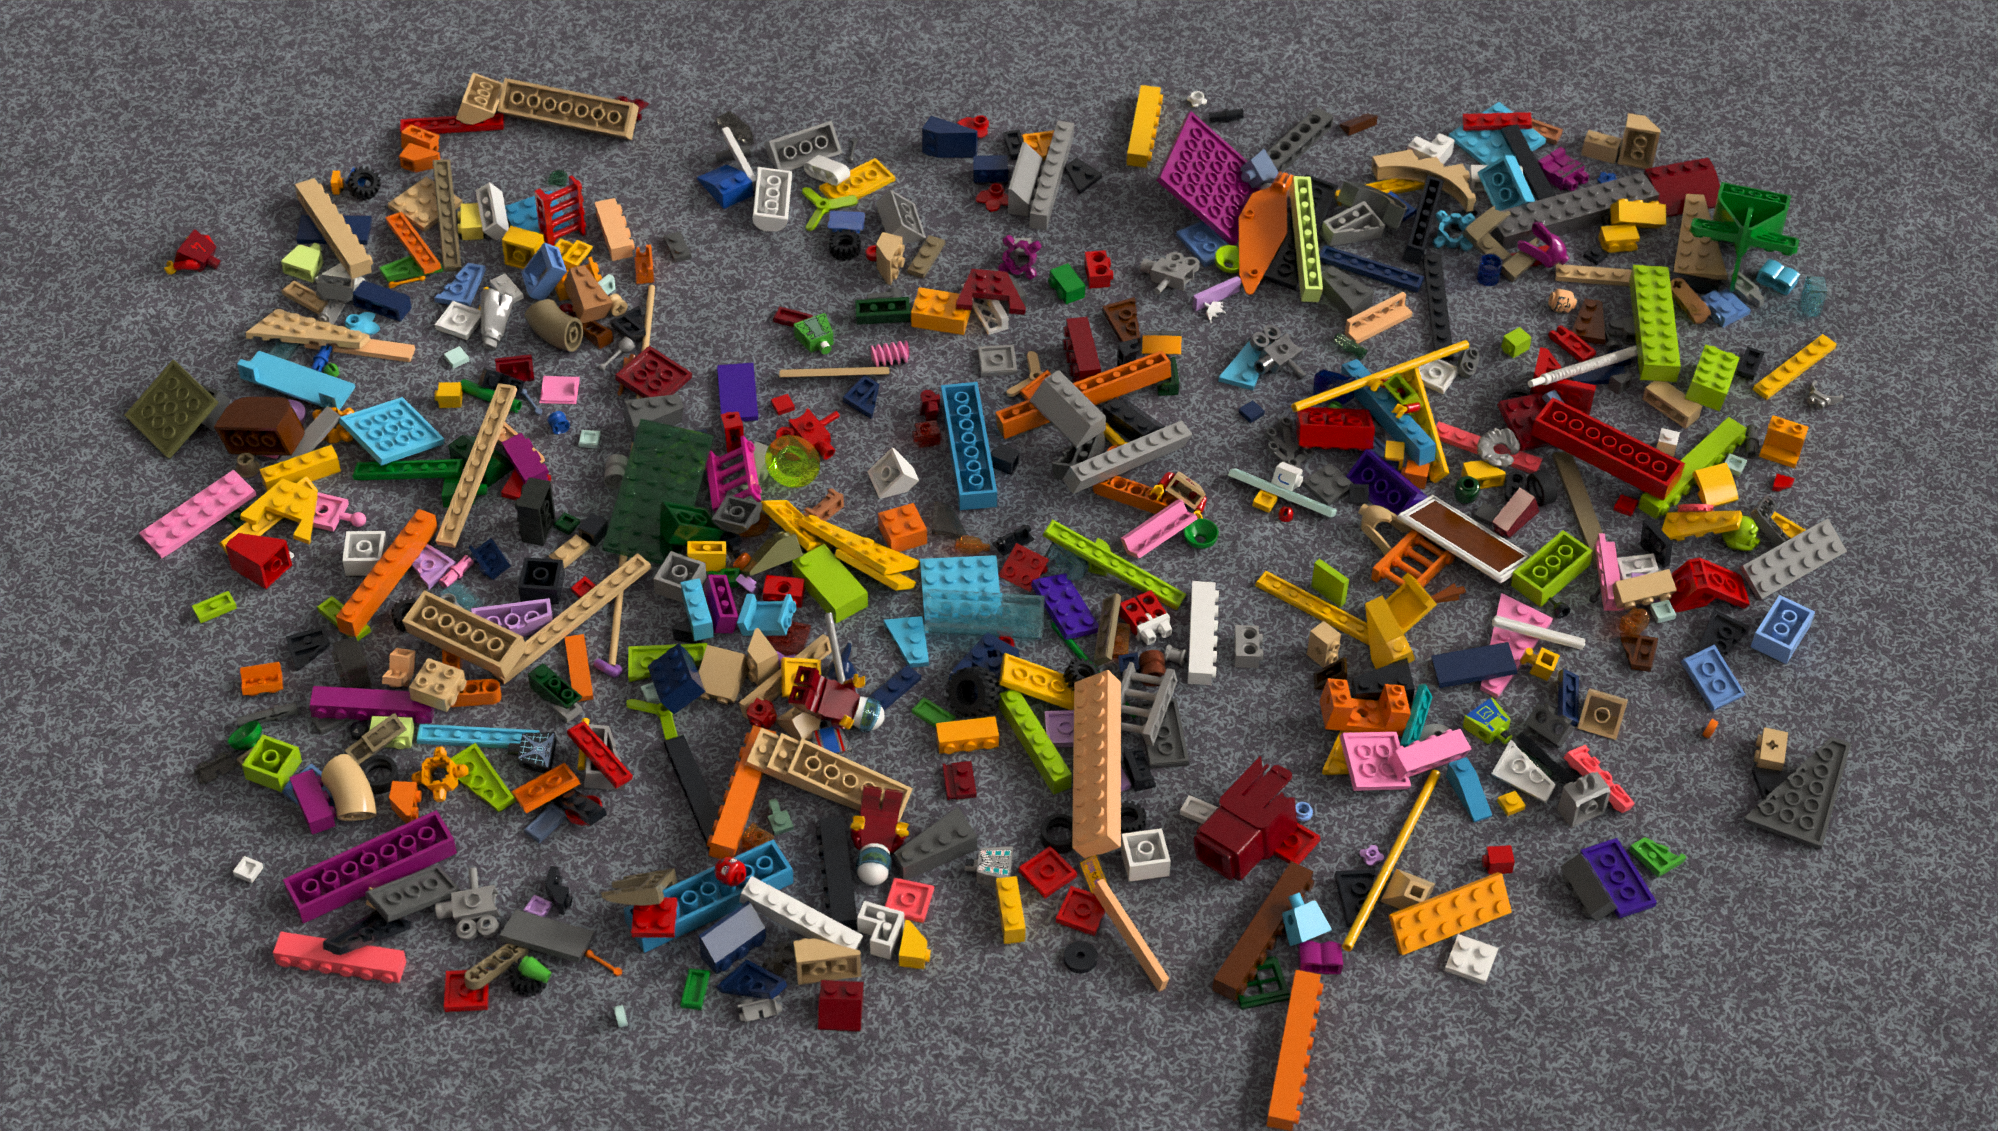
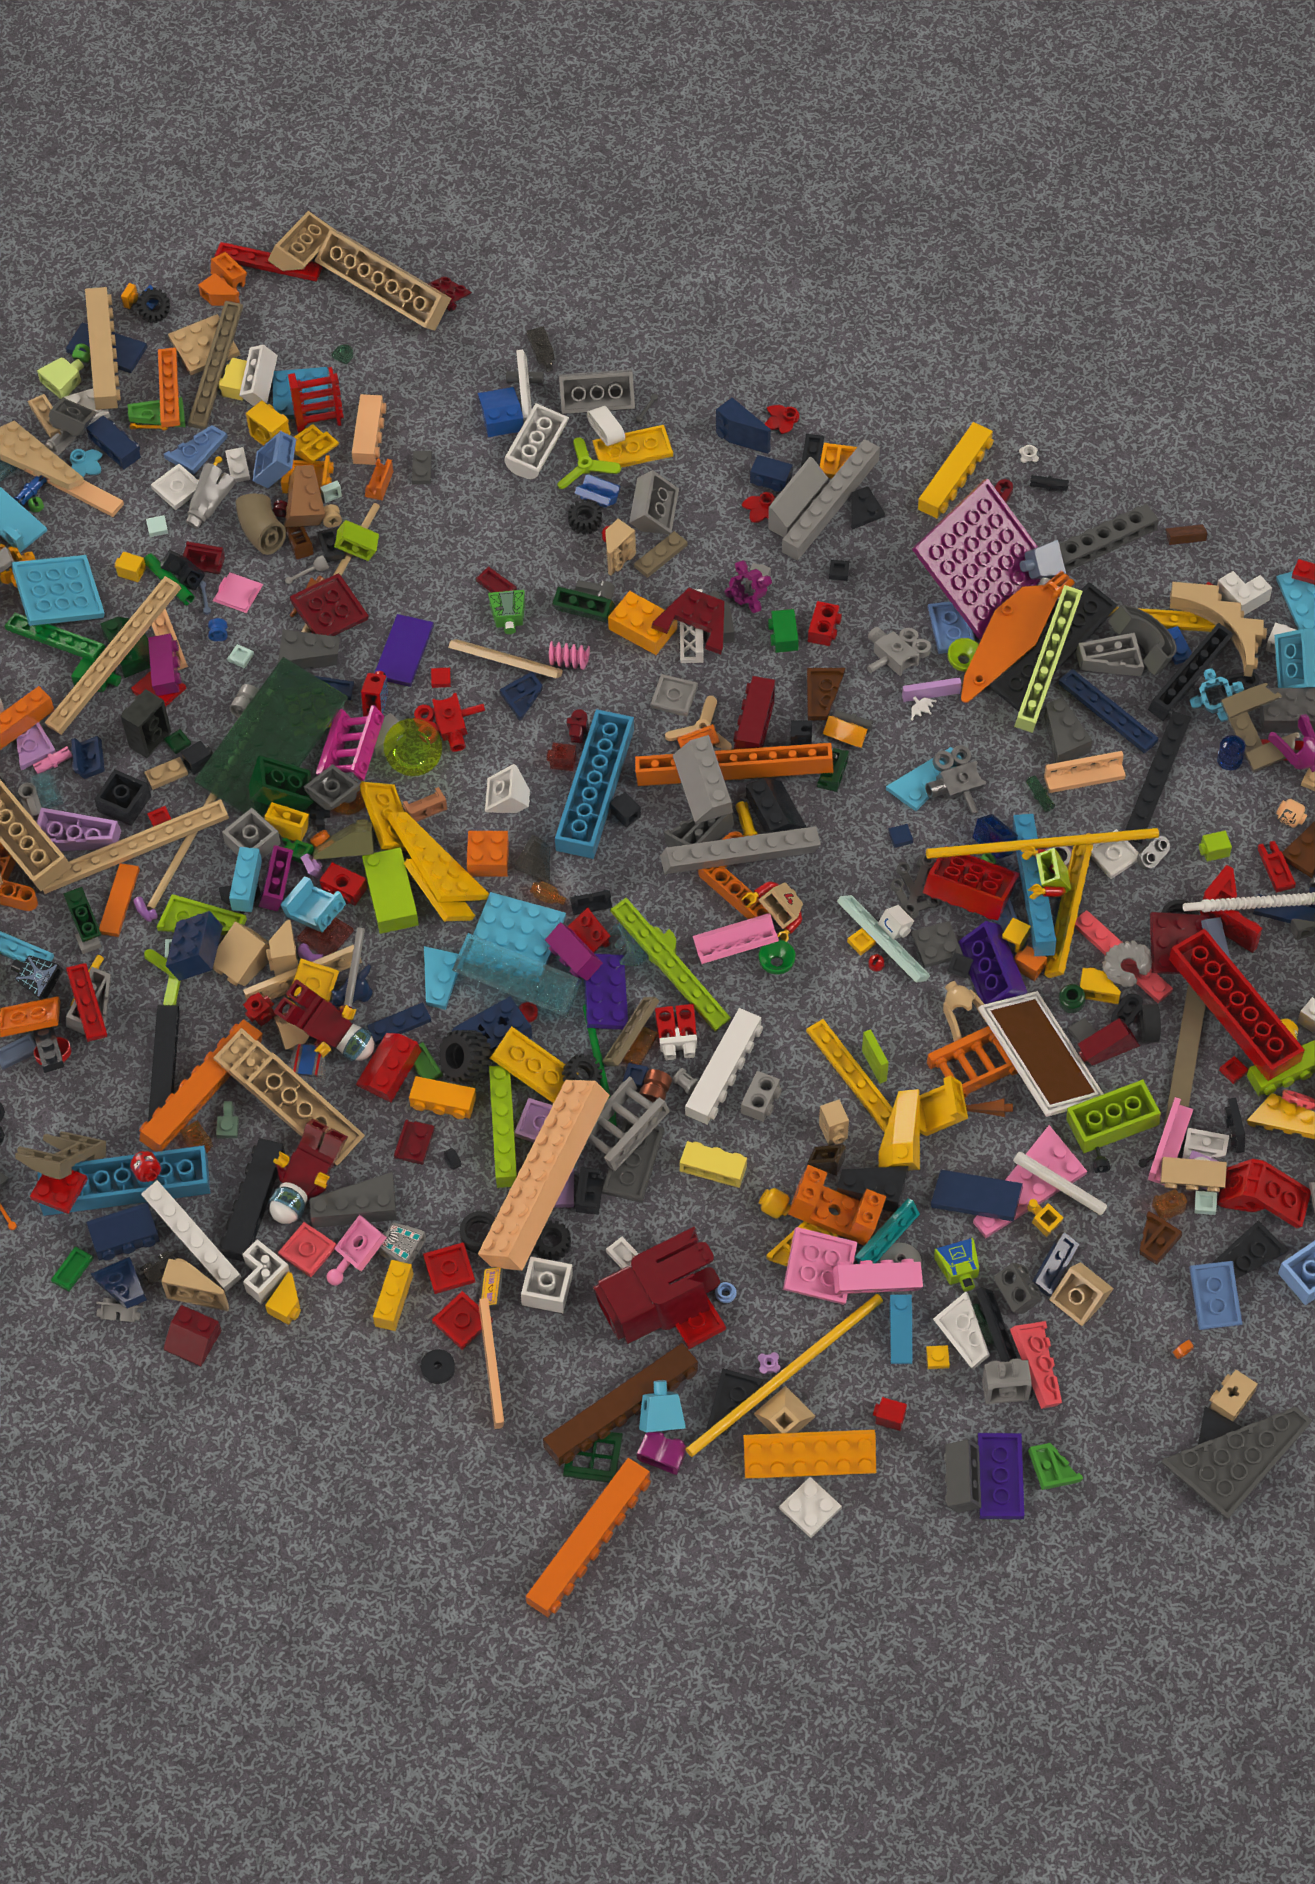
camera: 25 degrees right, 10 degrees up
(317, 238) = (81, 355): none -> bright green tile
(652, 315) = (356, 540): none -> lime brick
(905, 723) = (389, 1066): none -> red slope
(963, 887) = (352, 1253): none -> bright pink plate
(1002, 782) = (452, 1159): none -> black tile
(1023, 579) = (573, 952): none -> magenta brick
(1087, 226) = (839, 570): none -> black plate
(1236, 712) = (713, 1164): none -> light yellow brick
(1306, 726) = (774, 1203): none -> yellow head

